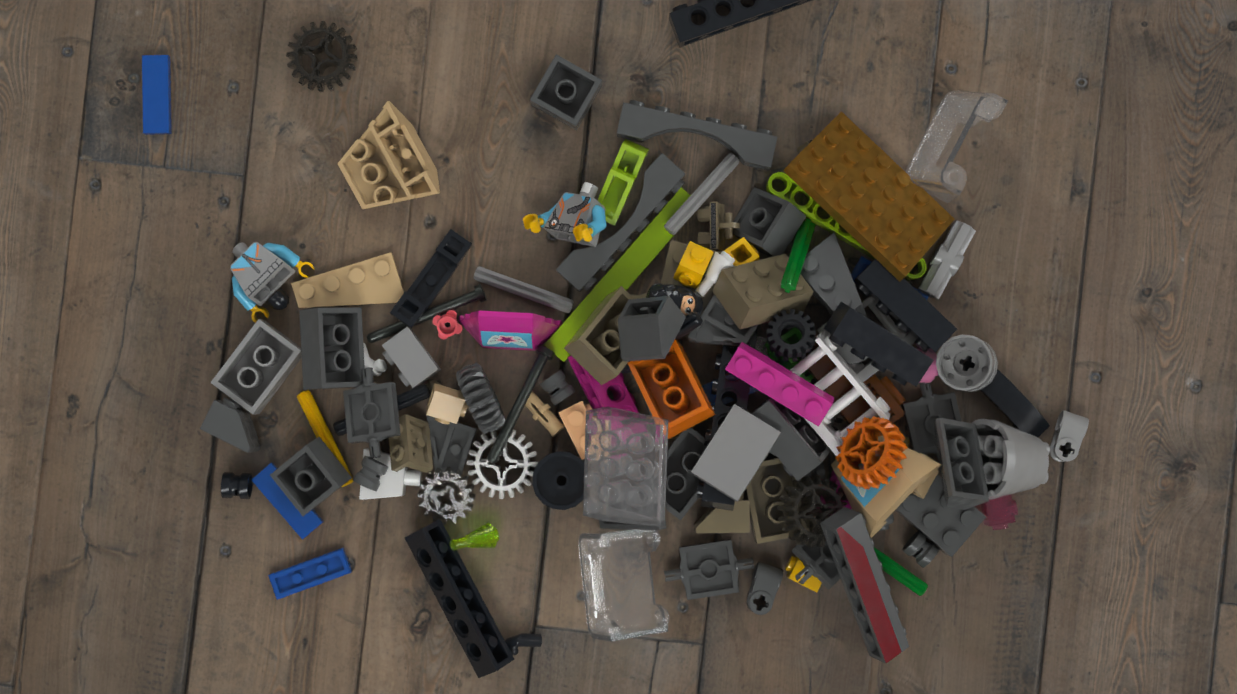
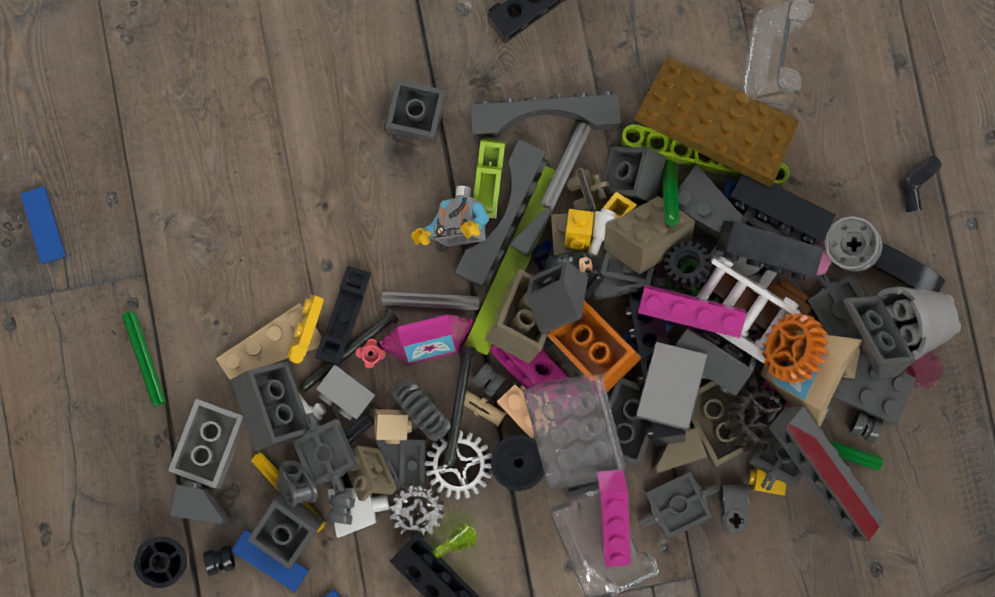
camera: 15 degrees left, 5 degrees down
(177, 470) = (160, 562): none -> black cylinder
(219, 261) = (143, 358): none -> green axle
(261, 272) = (185, 356): torso -> none
(278, 300) = (209, 377): black hinge -> none
(326, 46) = (184, 125): clear smoke gear -> none
(333, 434) = (295, 484): none -> dark grey piece
(387, 282) = (304, 330): none -> yellow hinge
(389, 162) = (273, 222): tan wedge -> none
(638, 565) = (614, 518): none -> dark pink brick
(639, 257) = (528, 237): none -> dark grey slope
(649, 275) = (540, 253): none -> arm
(946, 259) = (804, 158): light grey piece -> none
(1053, 314) = (915, 178): none -> black arm
(1069, 432) = (965, 279): light grey piece -> none

